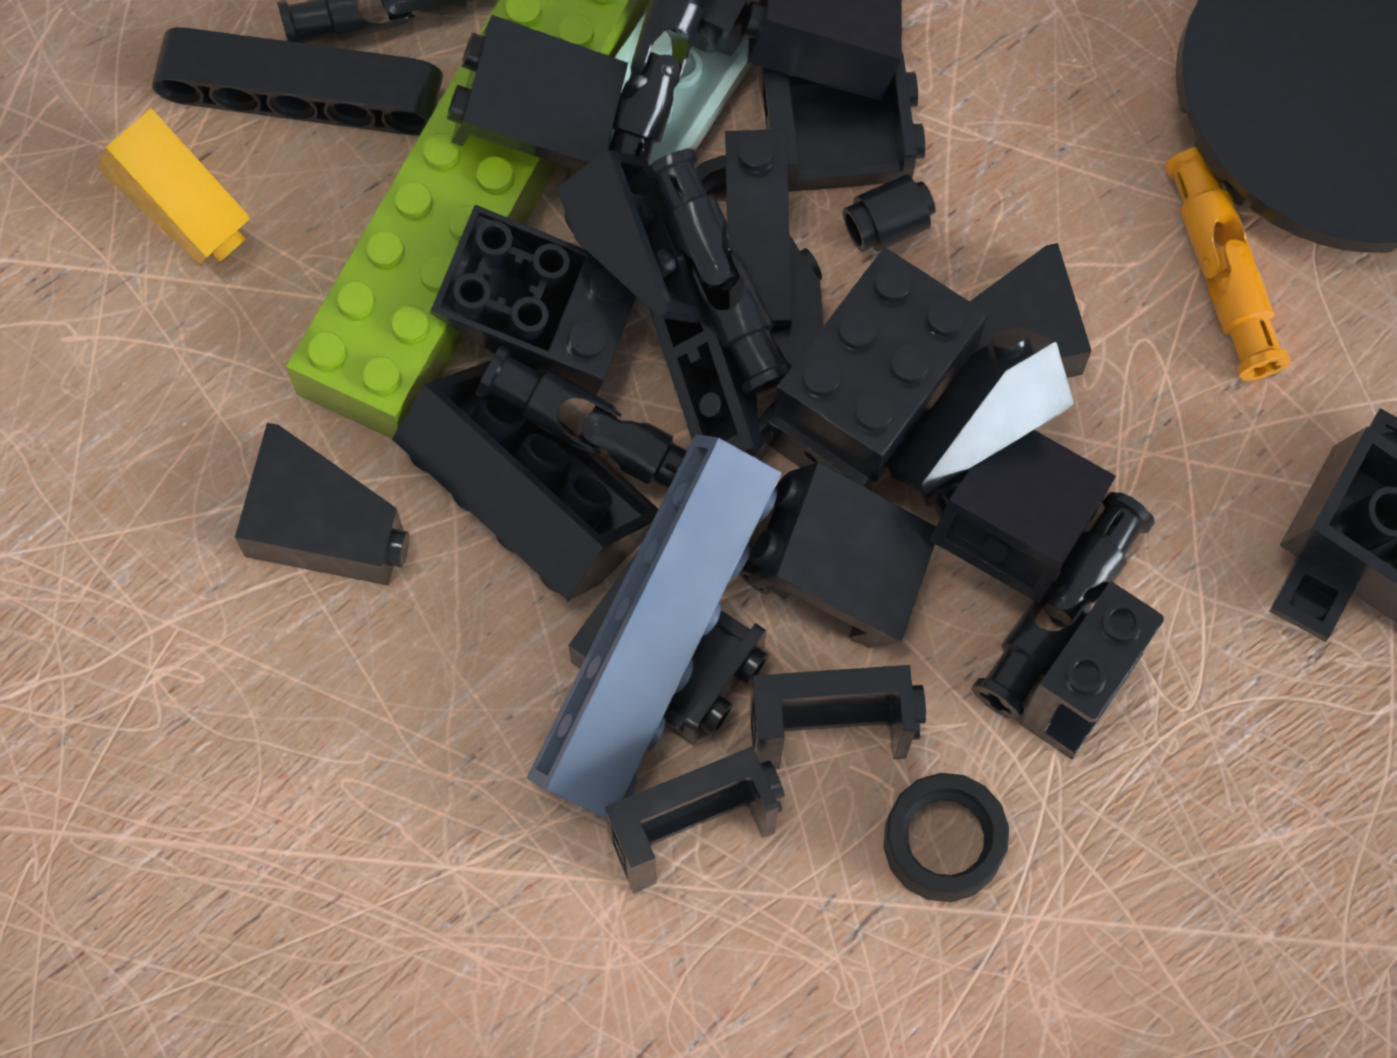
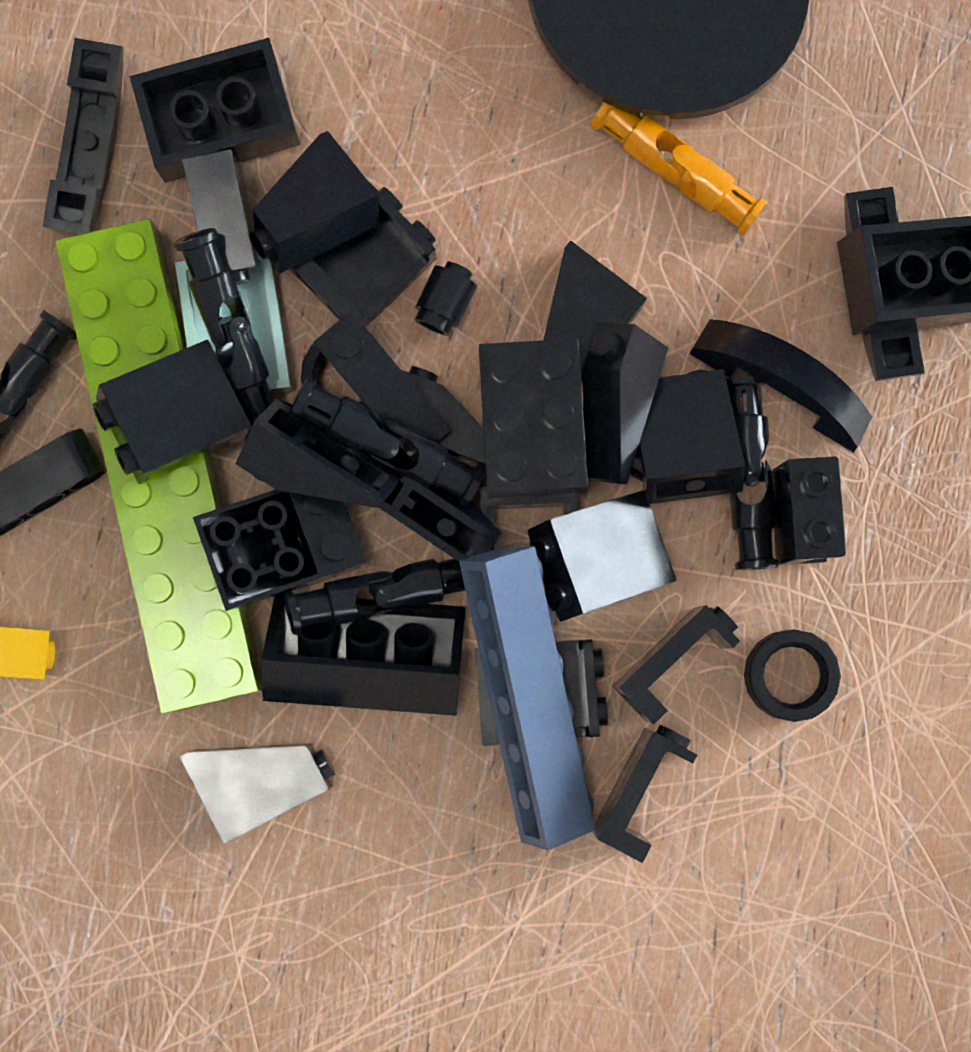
camera: 40 degrees left, 15 degrees up
(1208, 610) = (790, 372): none -> black slope

